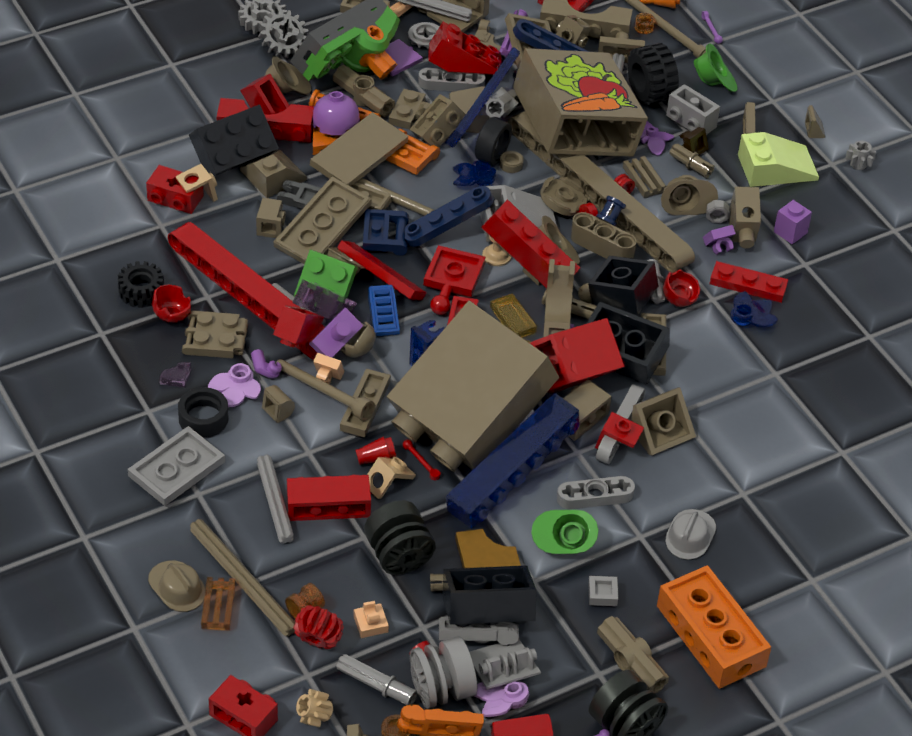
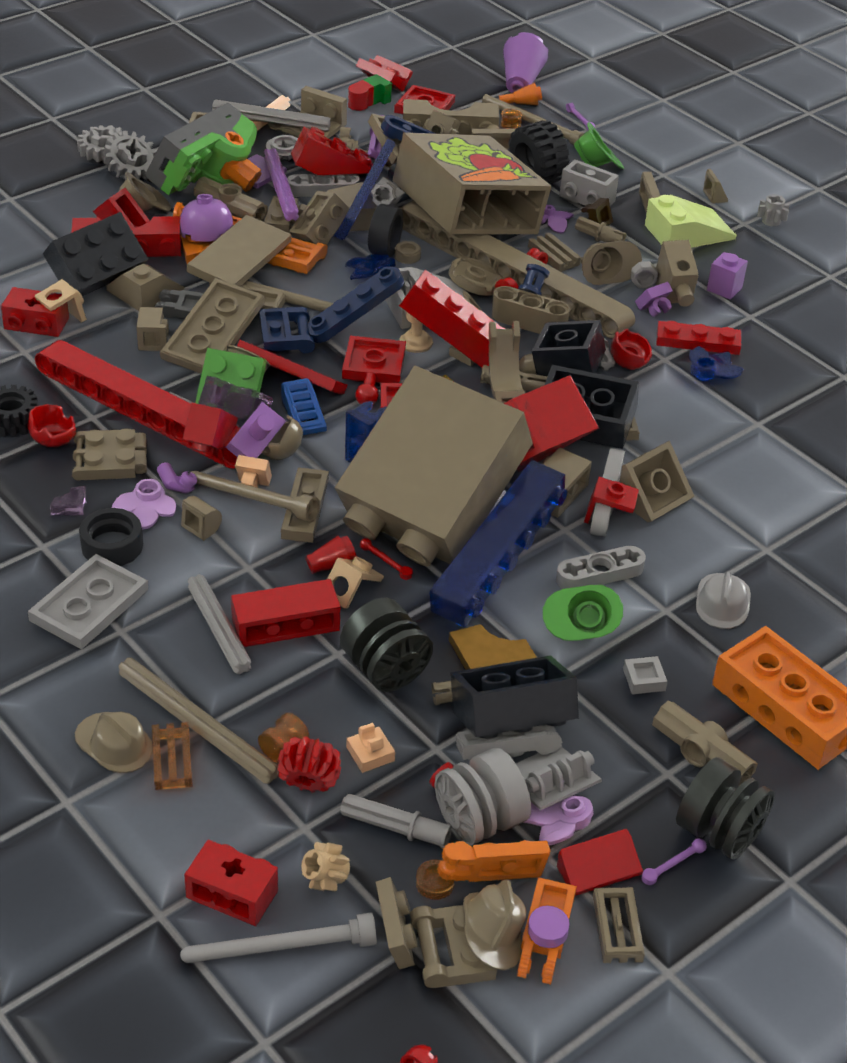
camera: 10 degrees left, 5 degrees down
(411, 79) = (281, 184): none -> medium lavender axle

